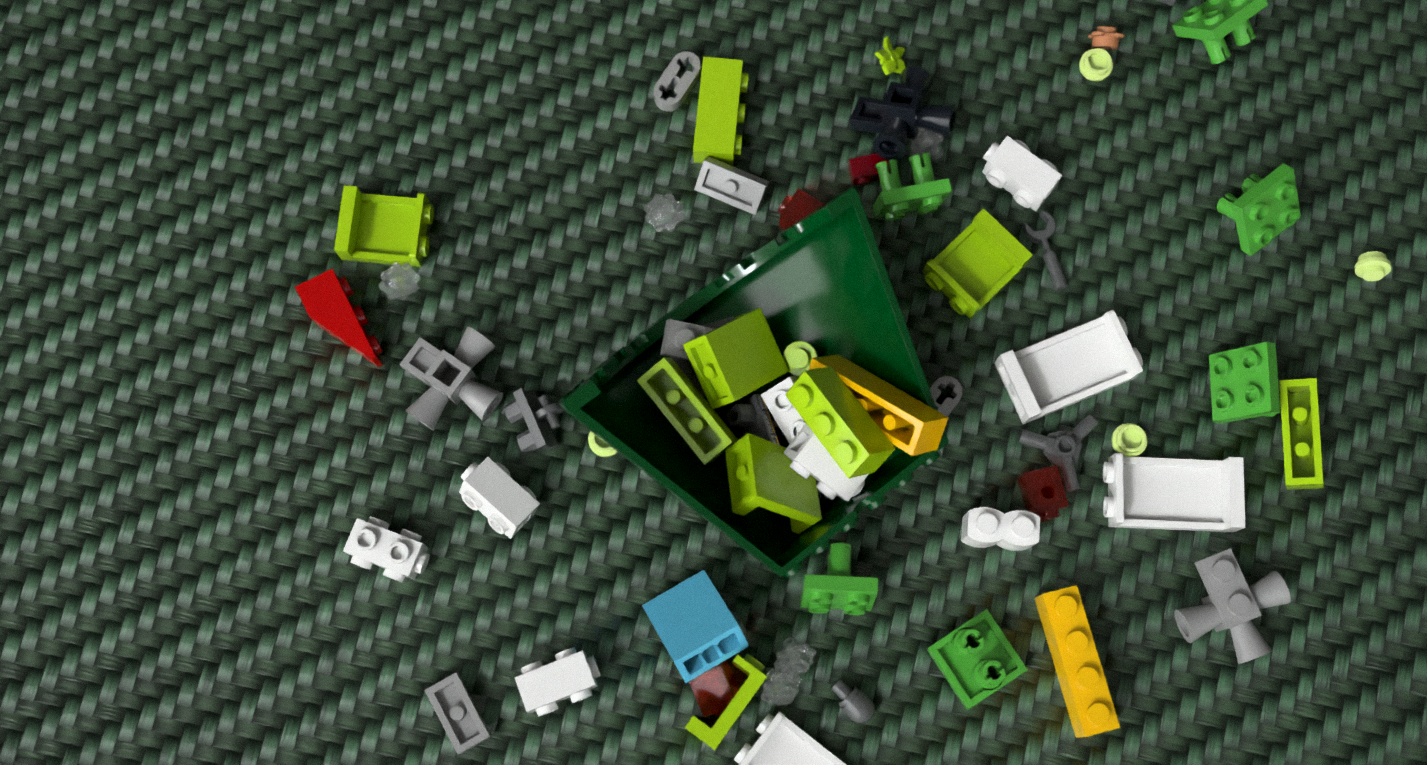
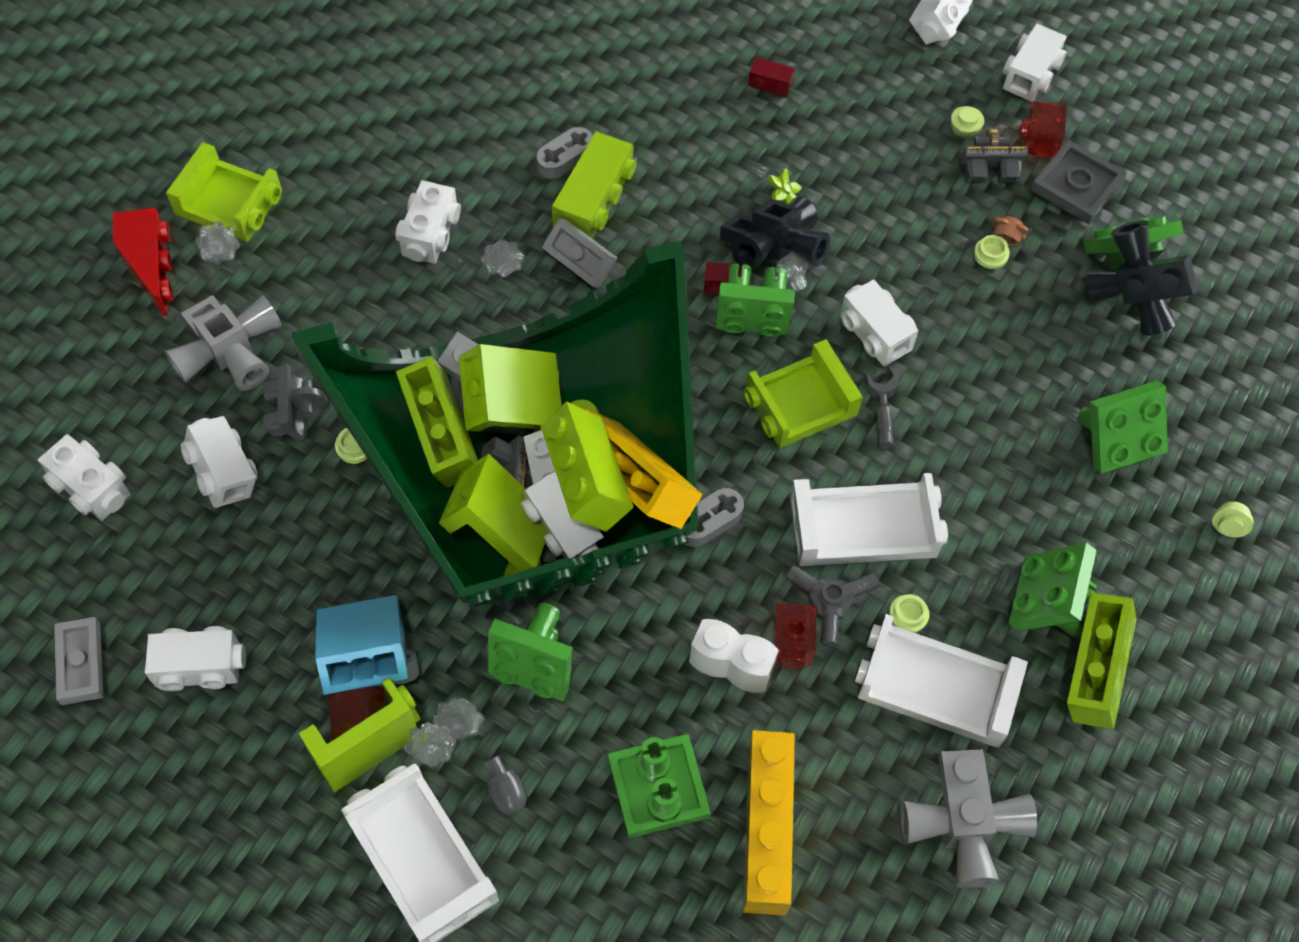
camera: 15 degrees right, 15 degrees down
(583, 207) = (428, 222): none -> white brick
(1244, 60) = (1144, 278): none -> black brick

